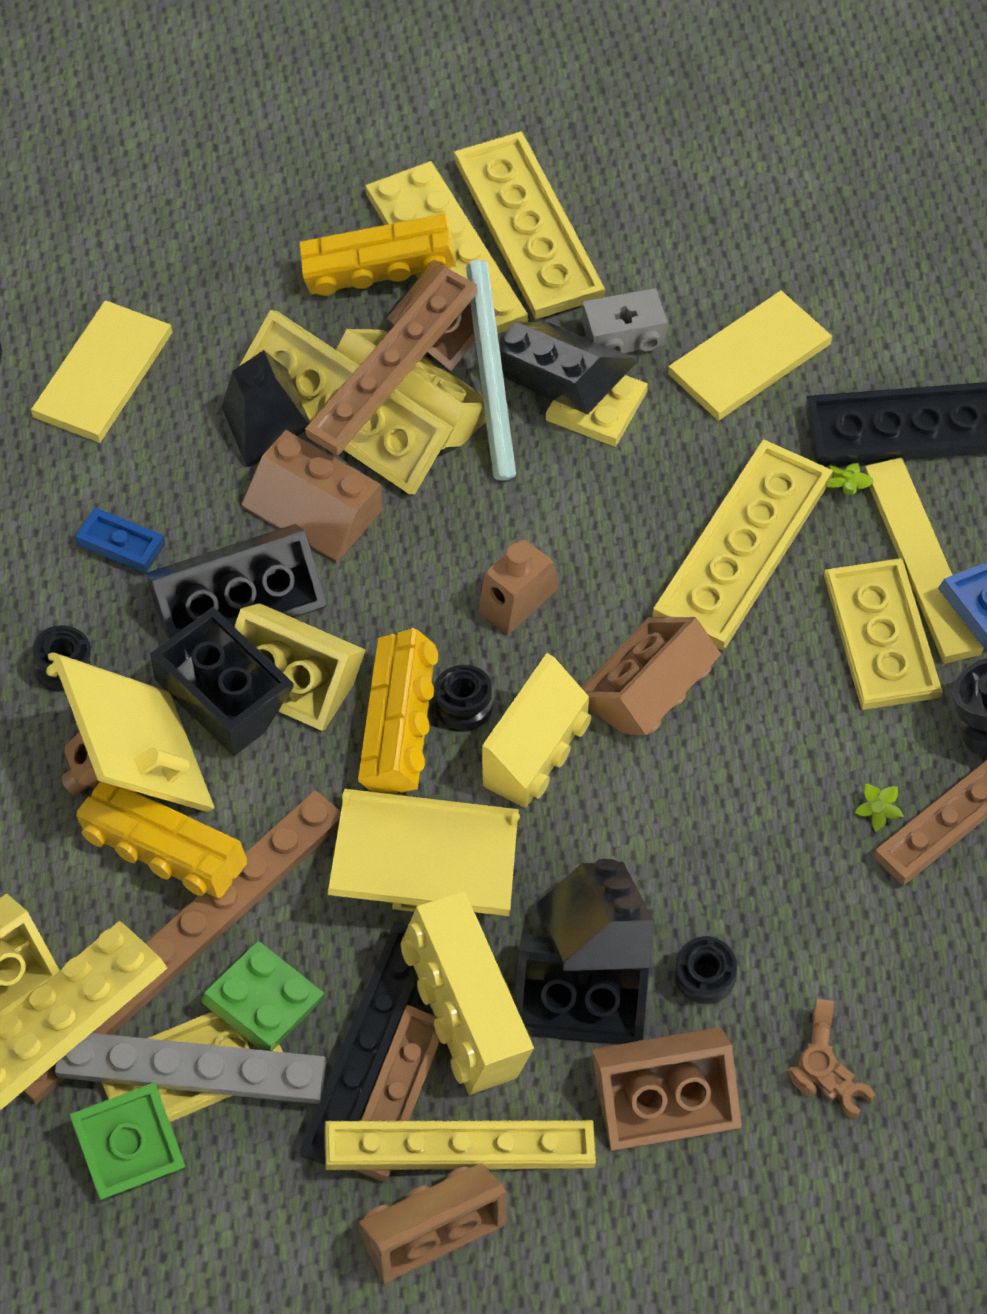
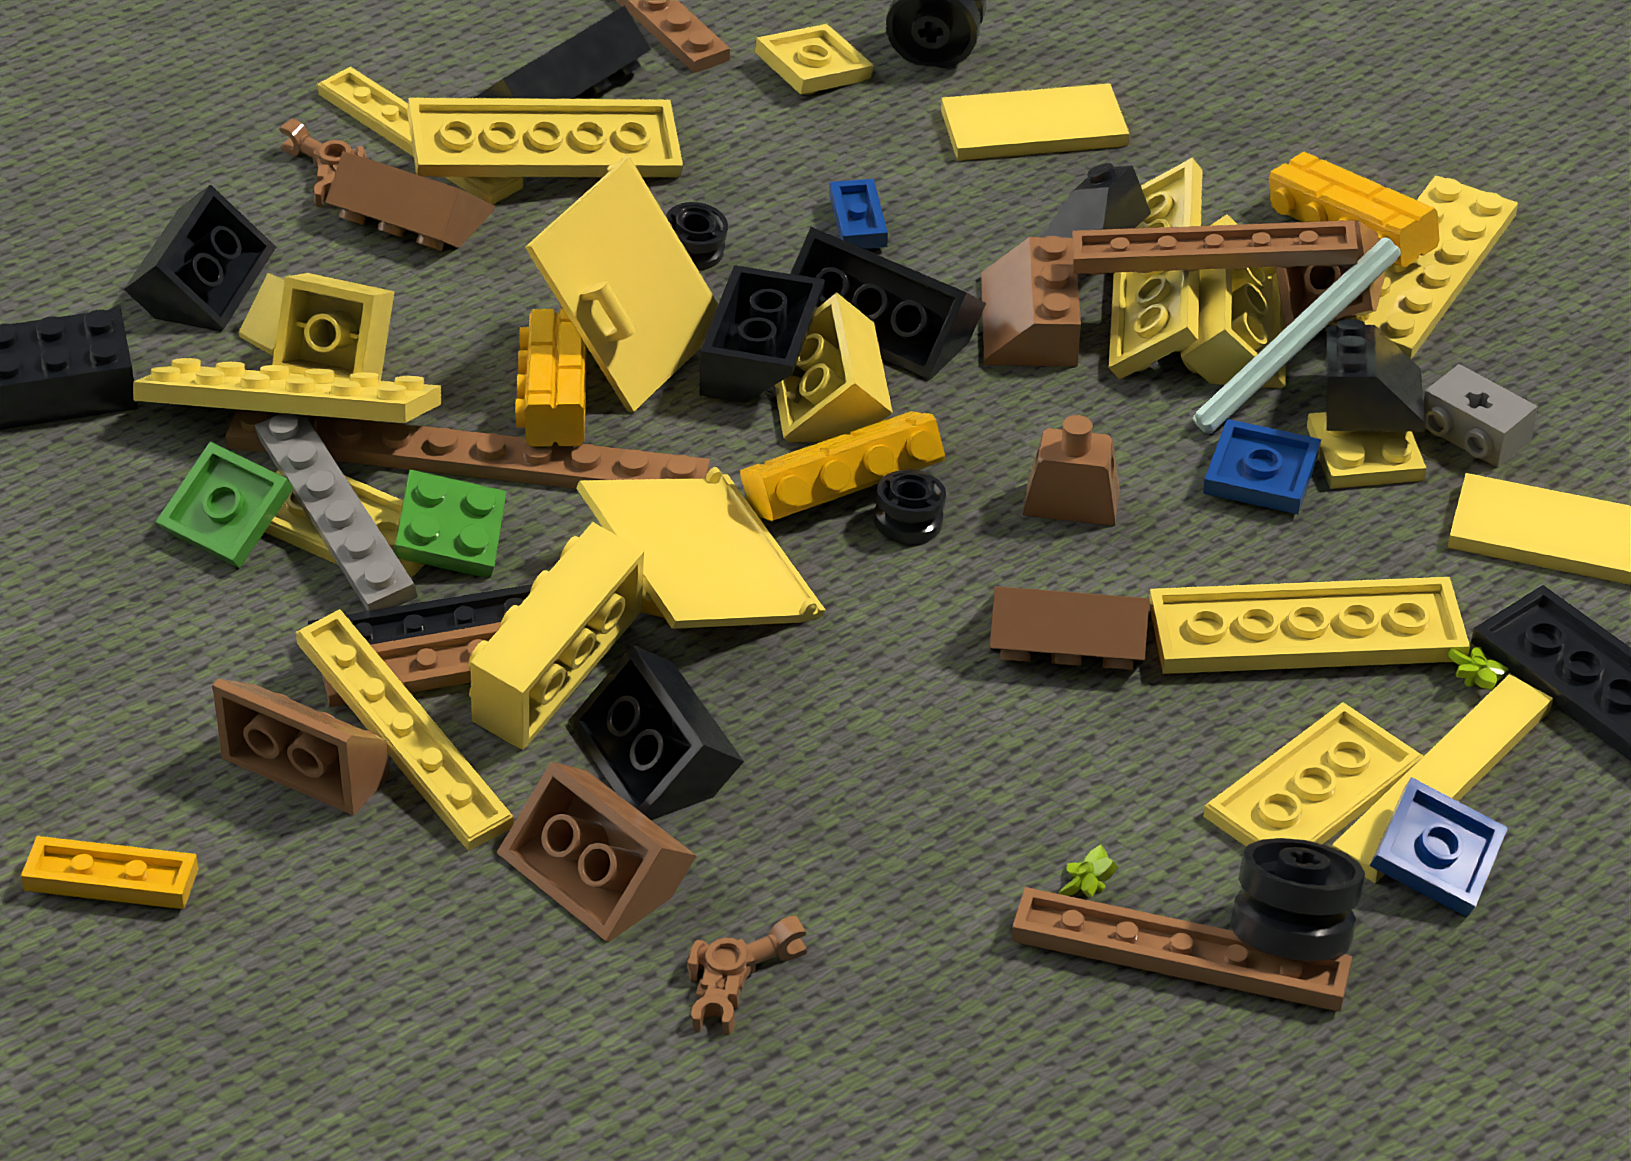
camera: 55 degrees right, 15 degrees down
(529, 225) = (1522, 298): light yellow plate -> none
(535, 734) = (909, 559): light yellow slope -> none
(576, 470) = (1262, 466): none -> blue plate
(598, 919) = (728, 695): black slope -> none
(712, 952) = (758, 821): black wheel -> none

